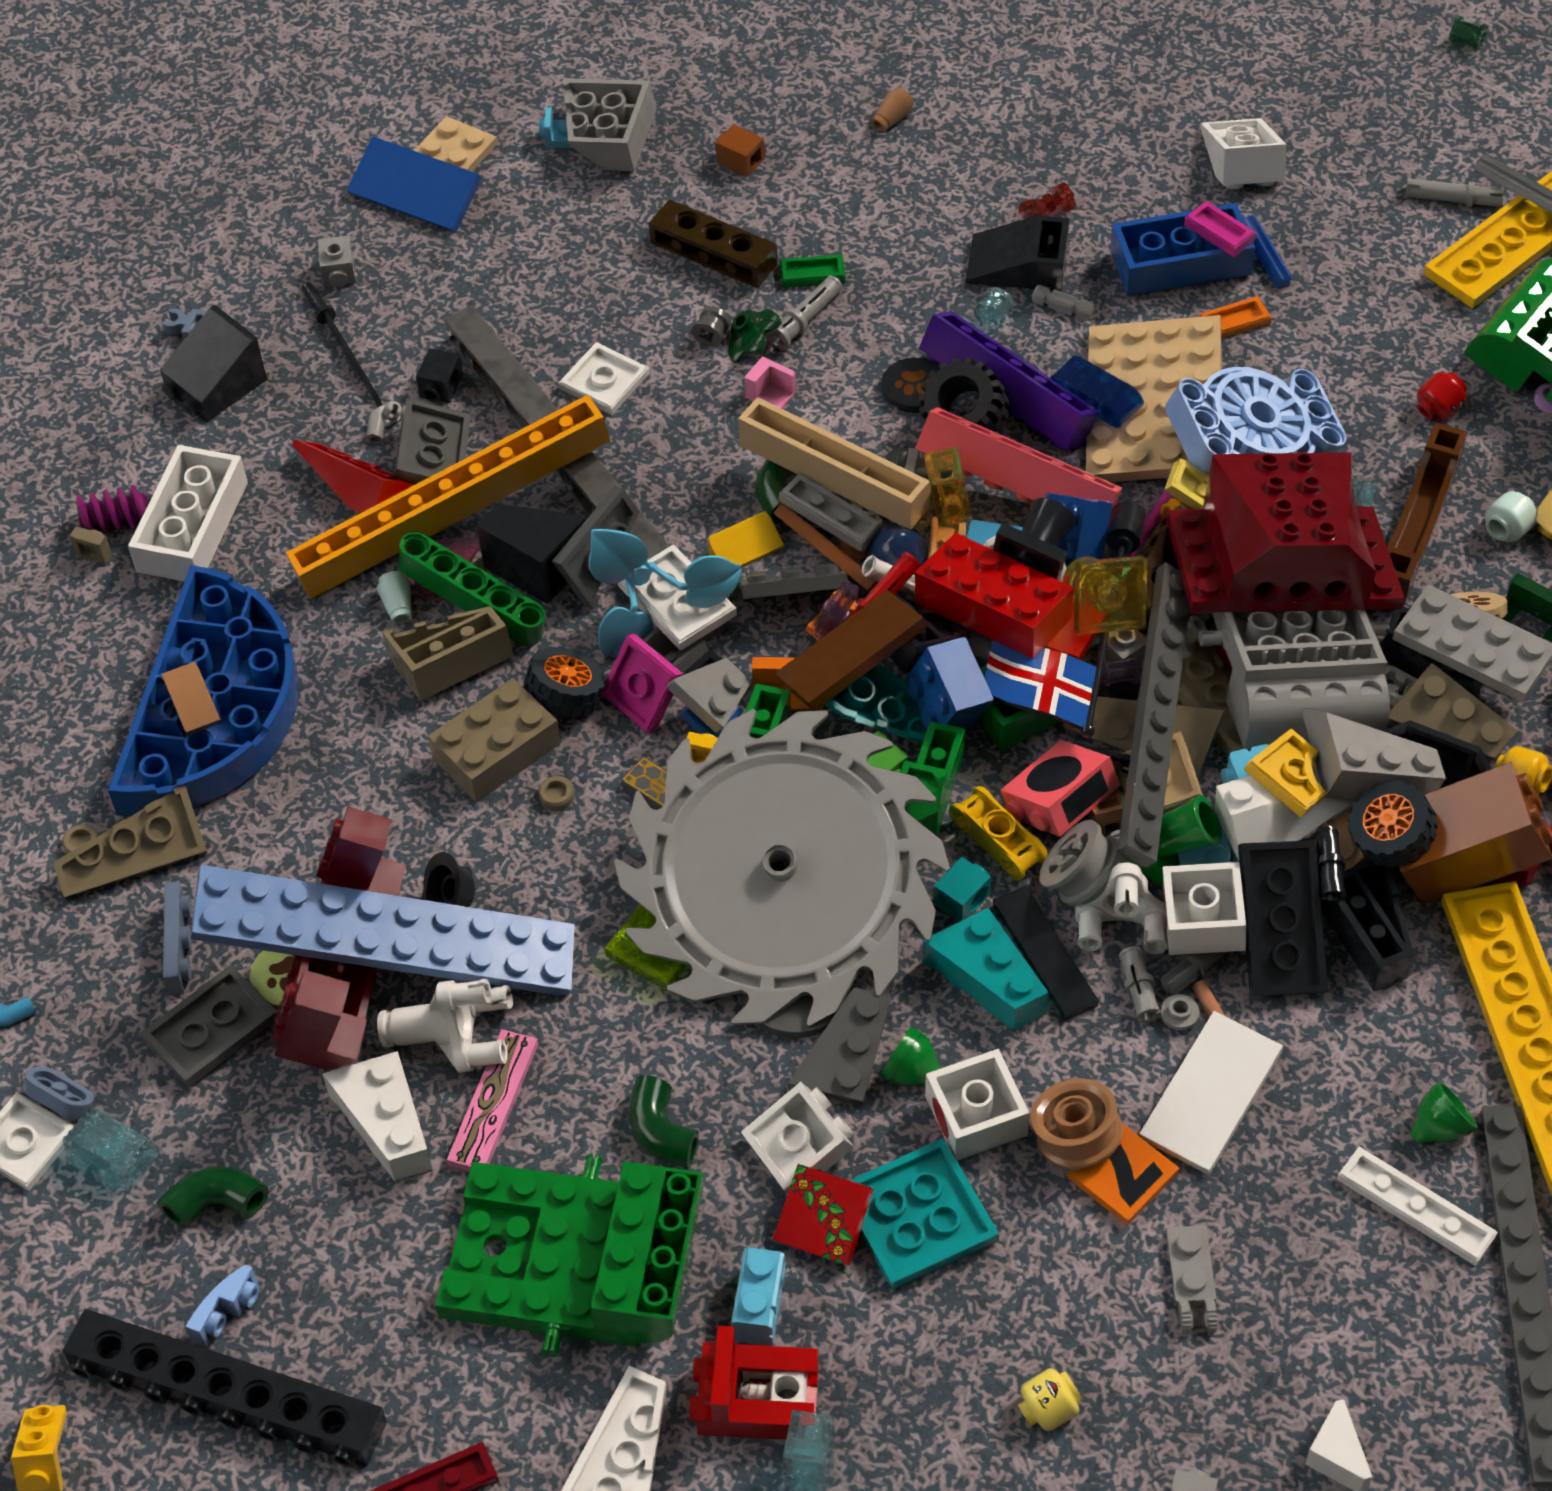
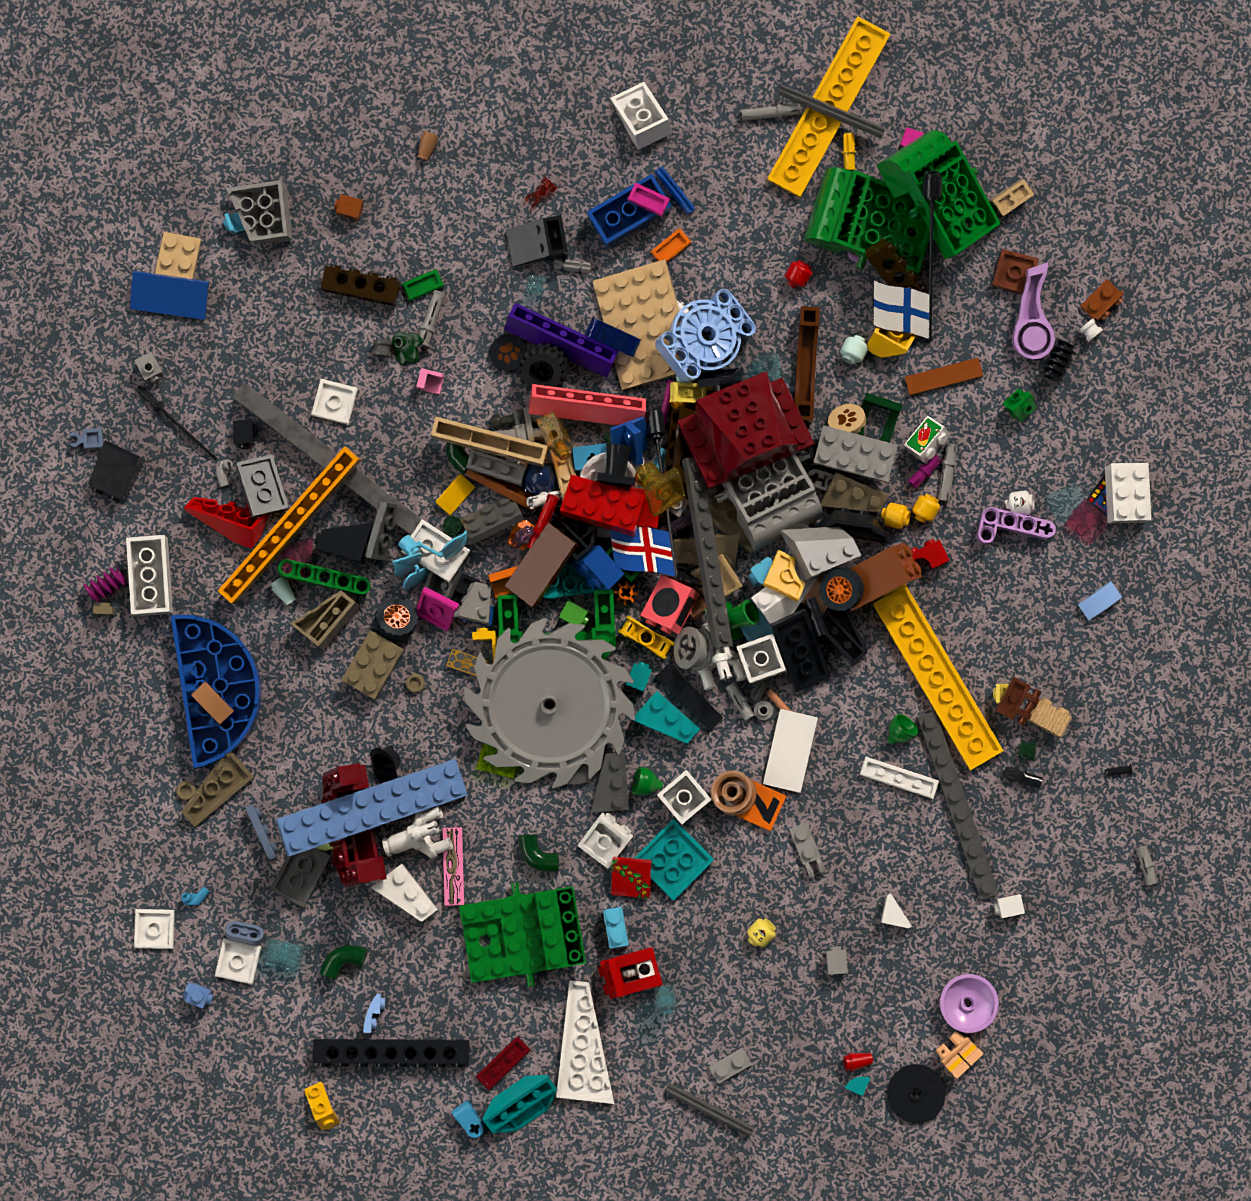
camera: 20 degrees left, 30 degrees up
(986, 756) = (625, 598): none -> orange gear

